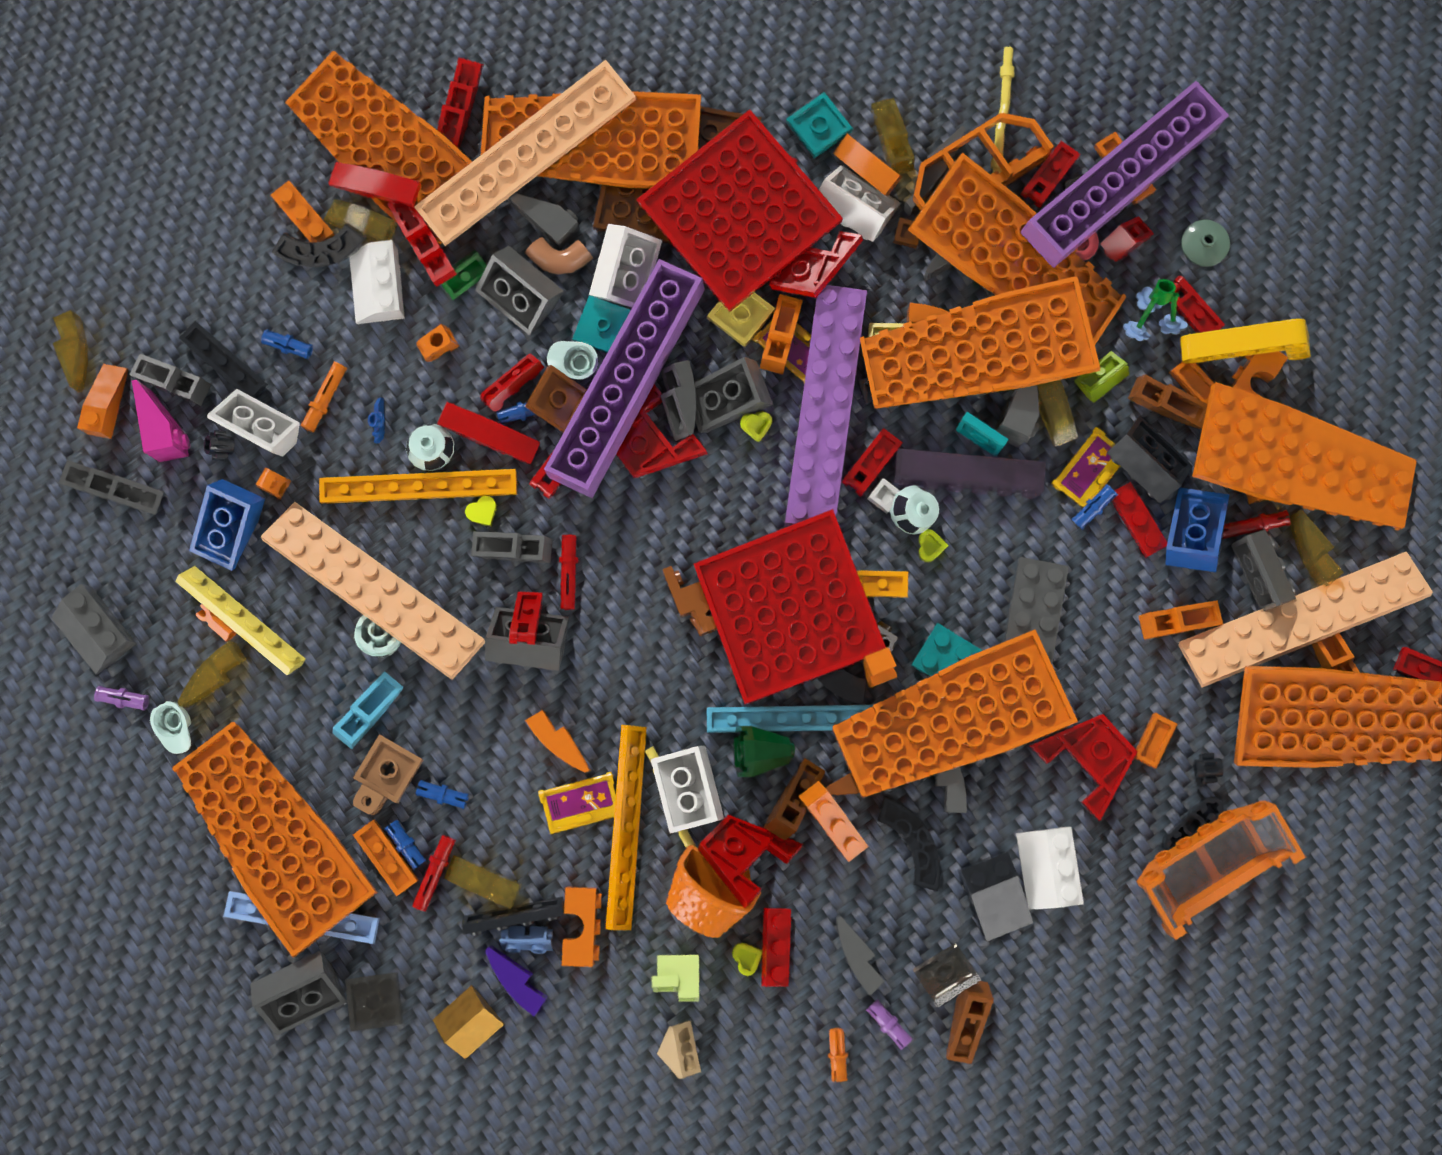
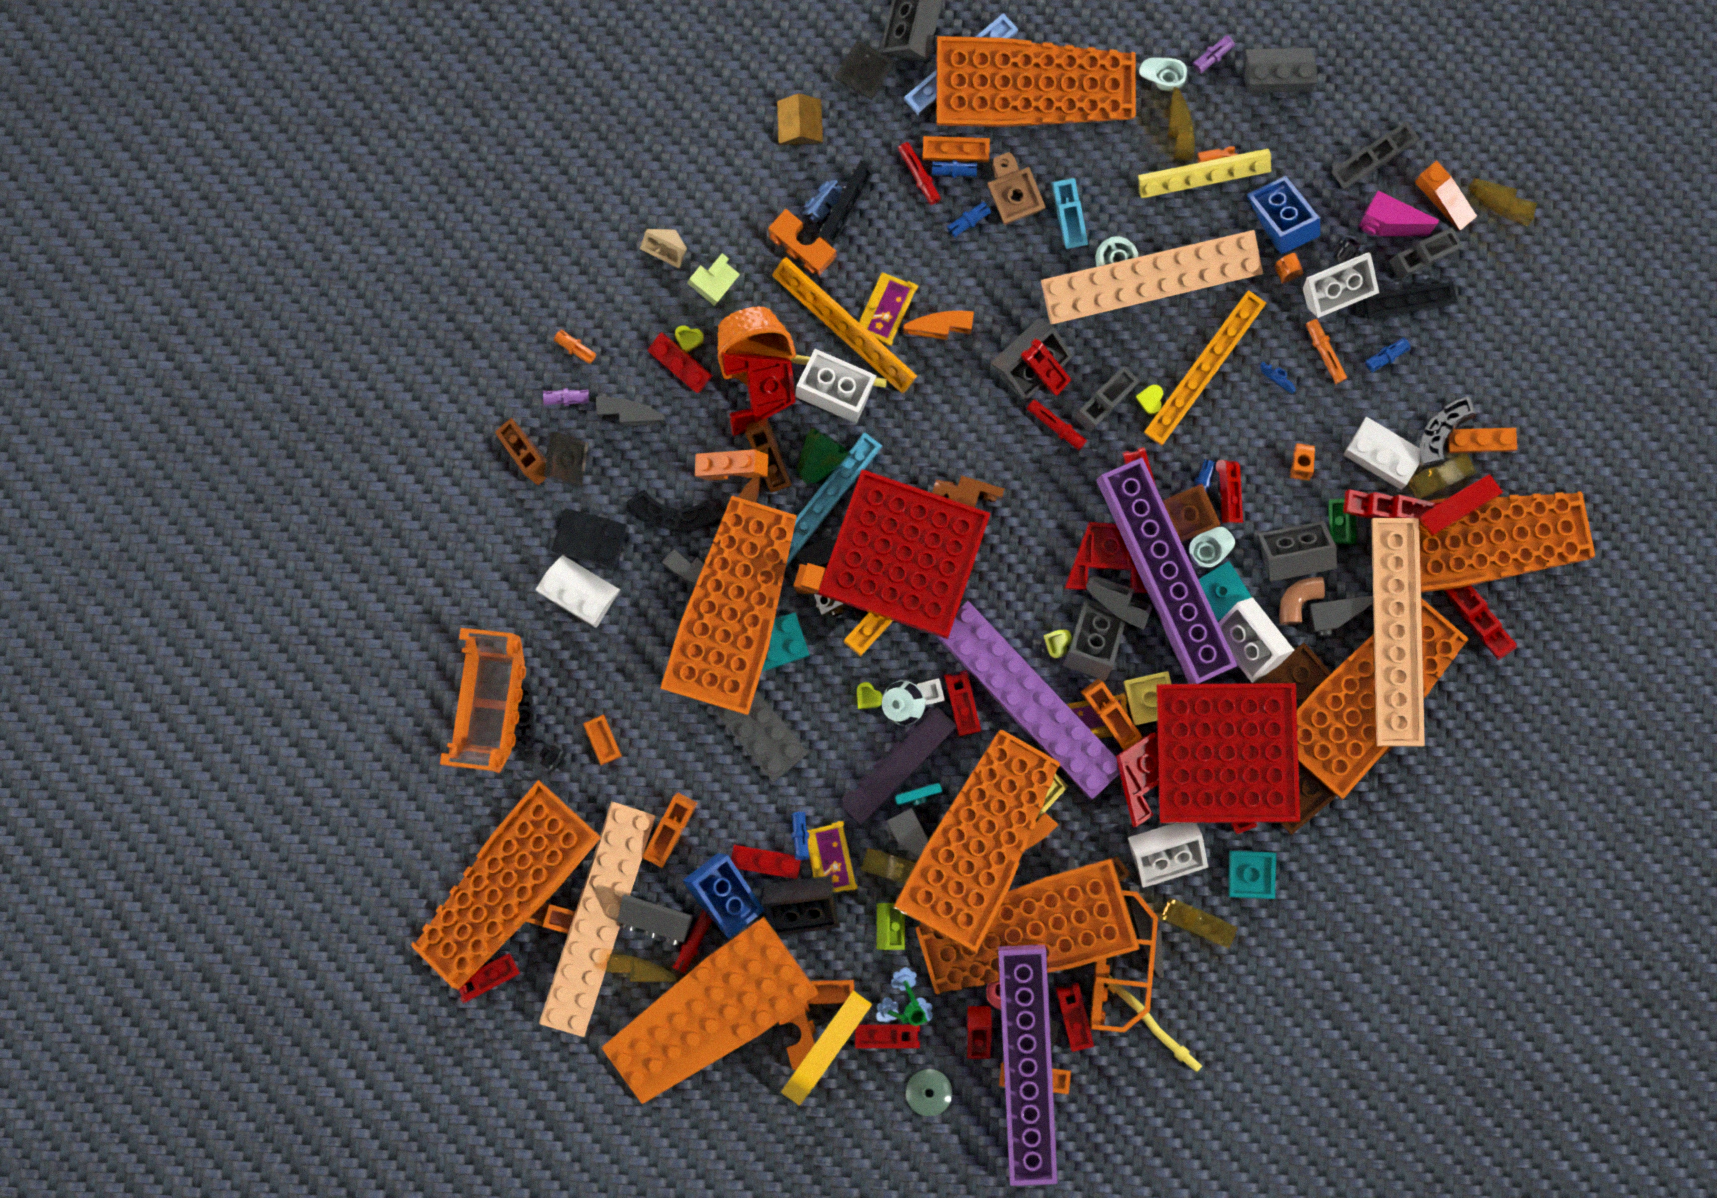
camera: 130 degrees right, 0 degrees up
(430, 447) = (1228, 398): light aqua cone -> none
(483, 881) = (885, 201): clear yellow slope -> none
(488, 433) = (1204, 446): red slope -> none
(515, 980) = (802, 172): dark purple slope -> none
(867, 165) = (1190, 883): orange slope -> none
(1101, 753) = (627, 693): red wing -> none
(1168, 401) = (833, 956): dark orange slope -> none

